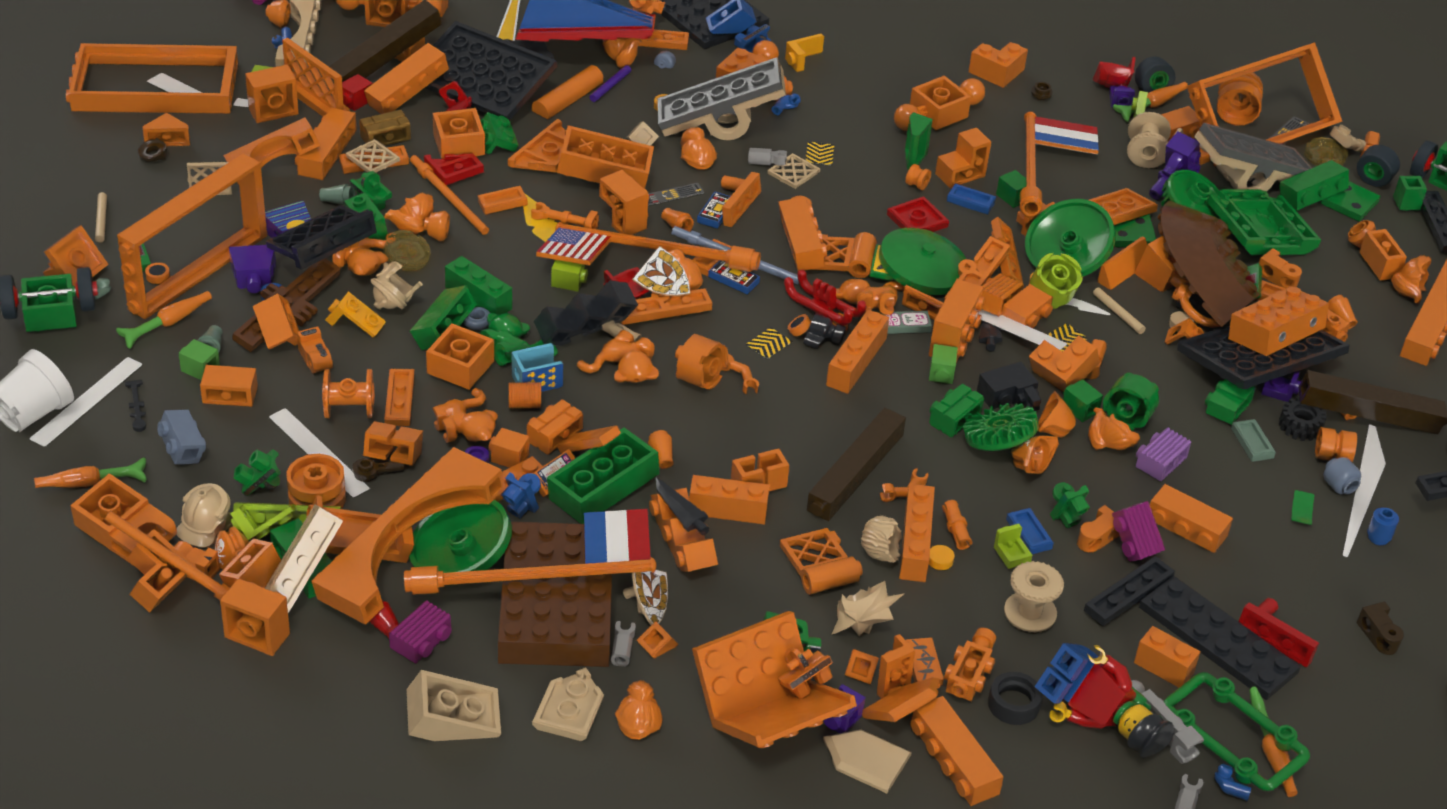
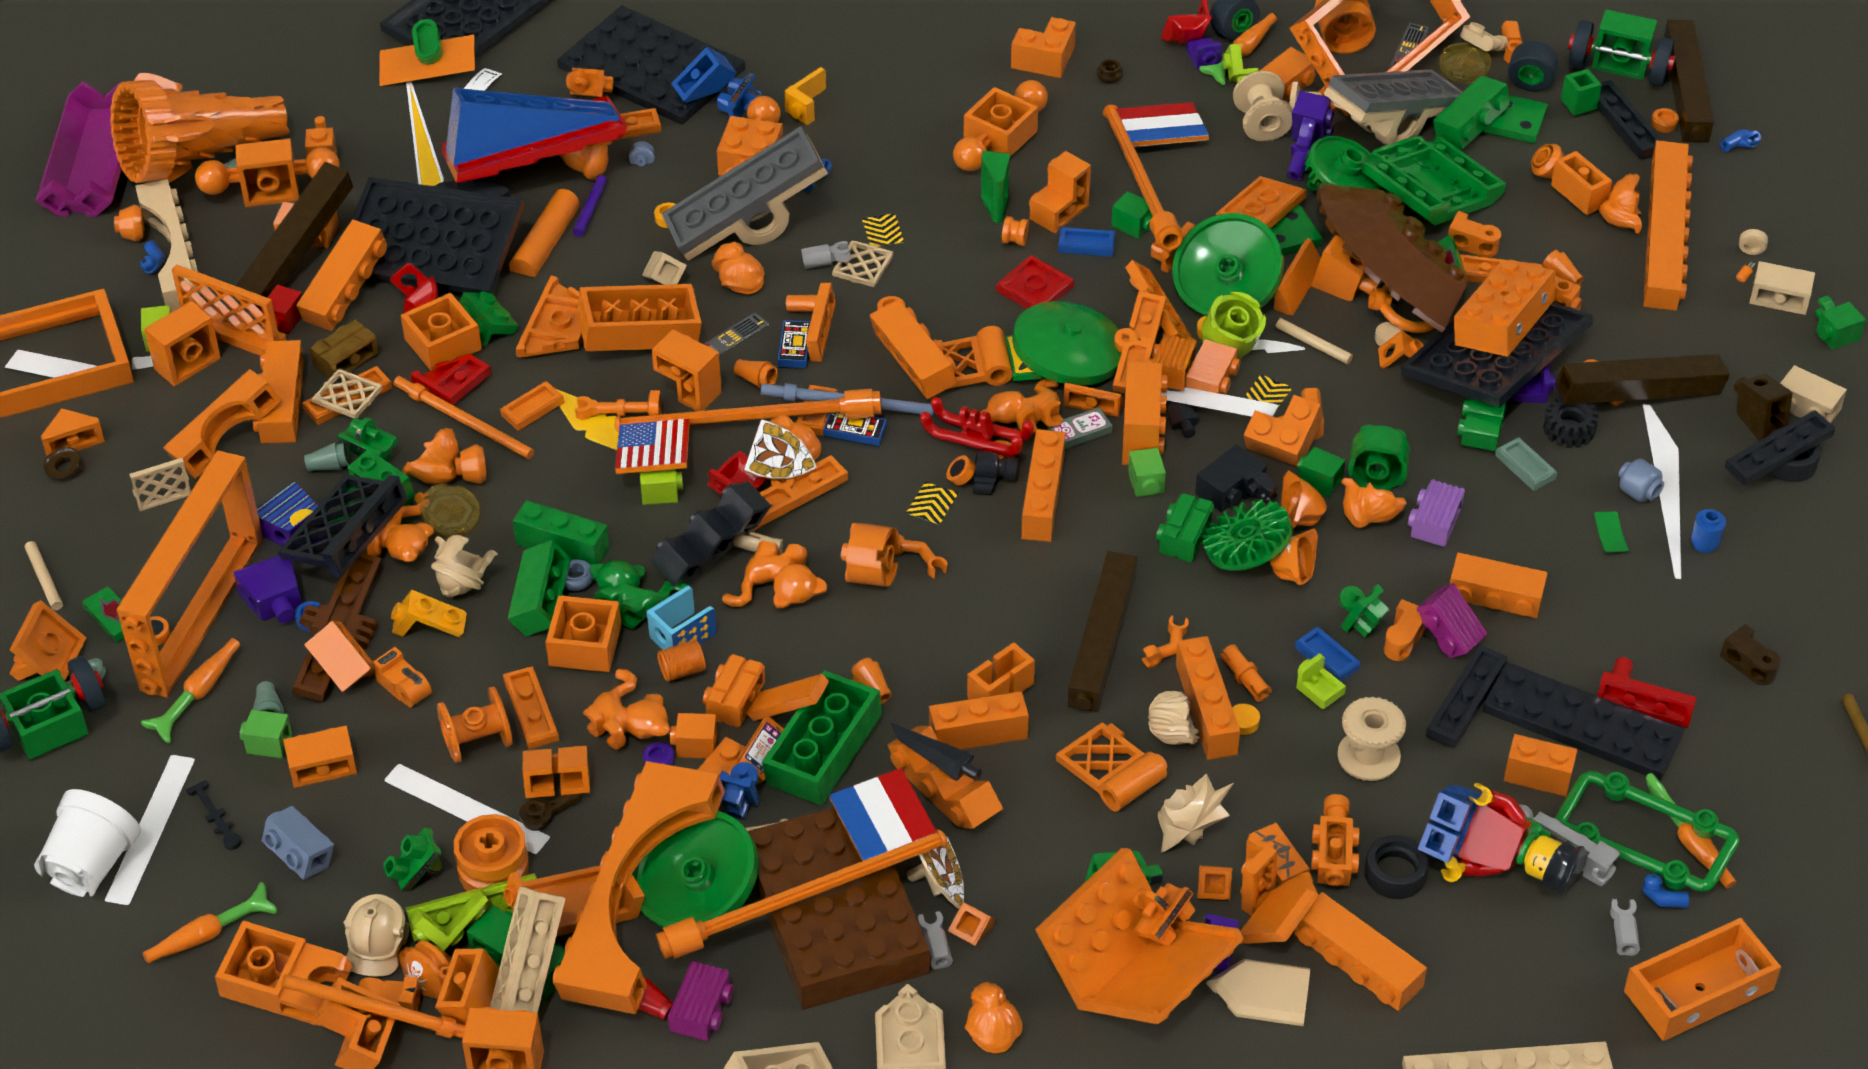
camera: 15 degrees left, 5 degrees up
(1335, 444) = (1625, 444): orange wheel -> none

